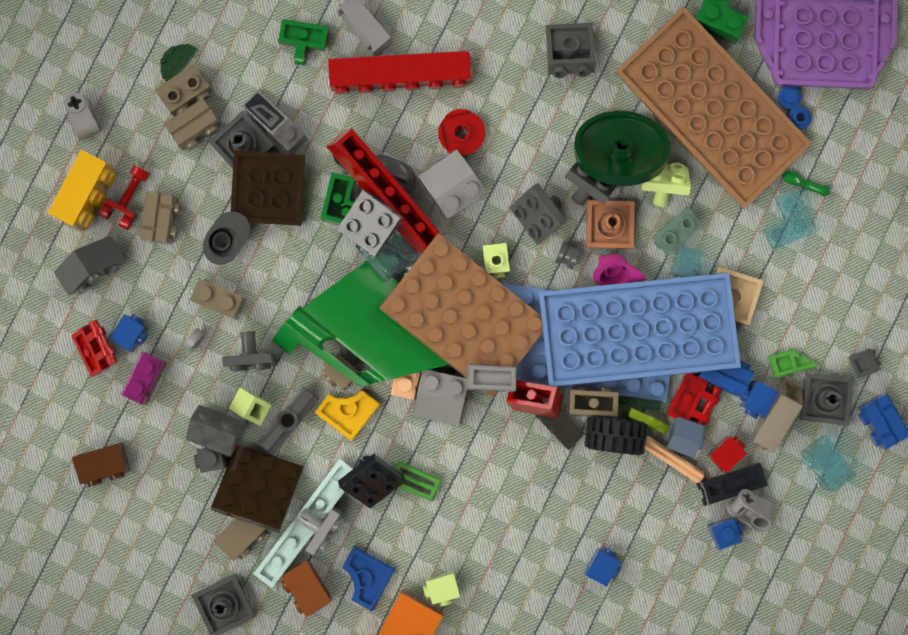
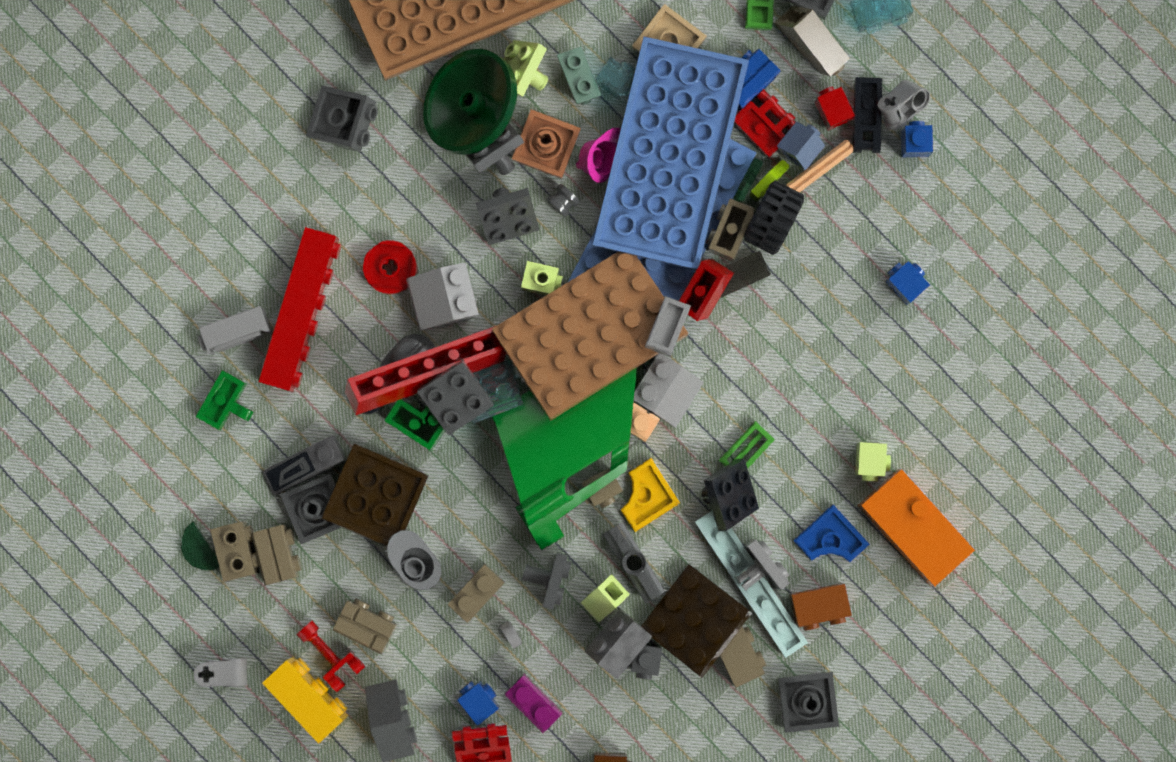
camera: 75 degrees left, 0 degrees up
(758, 399) = (788, 55): blue brick -> none

